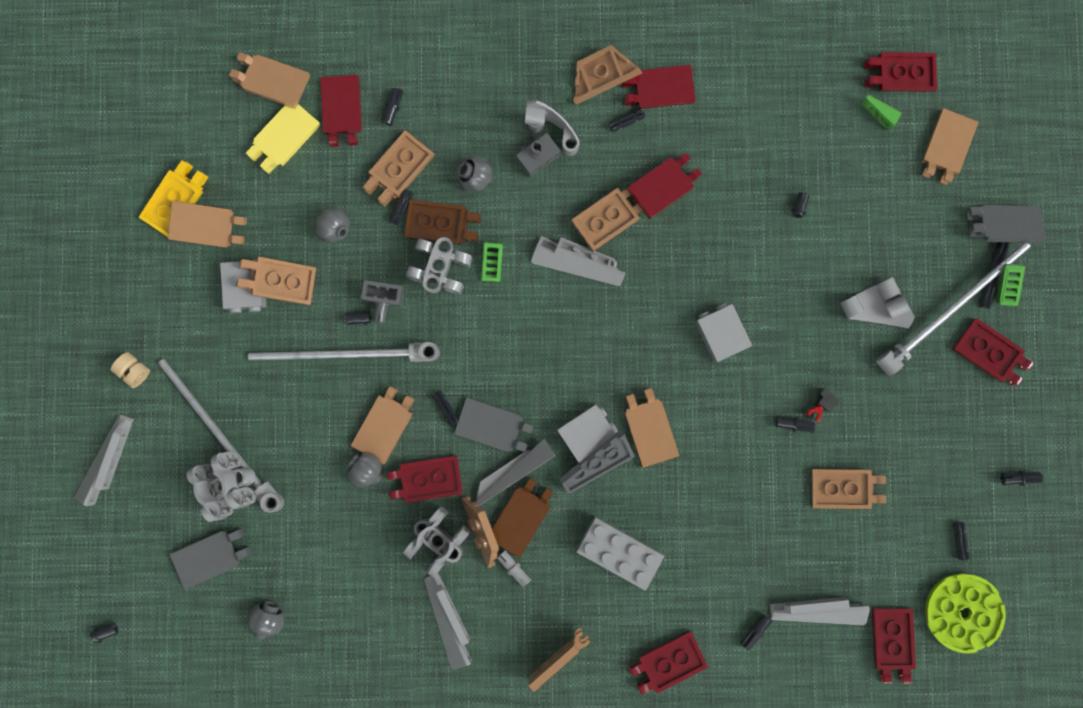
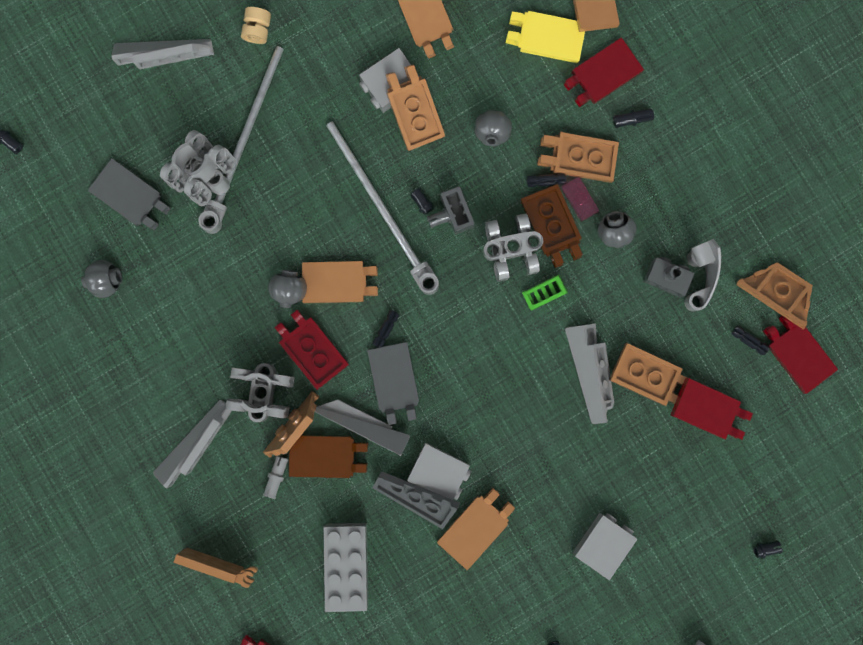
camera: 55 degrees right, 0 degrees up
(432, 188) = (580, 199): none -> clear pink plate

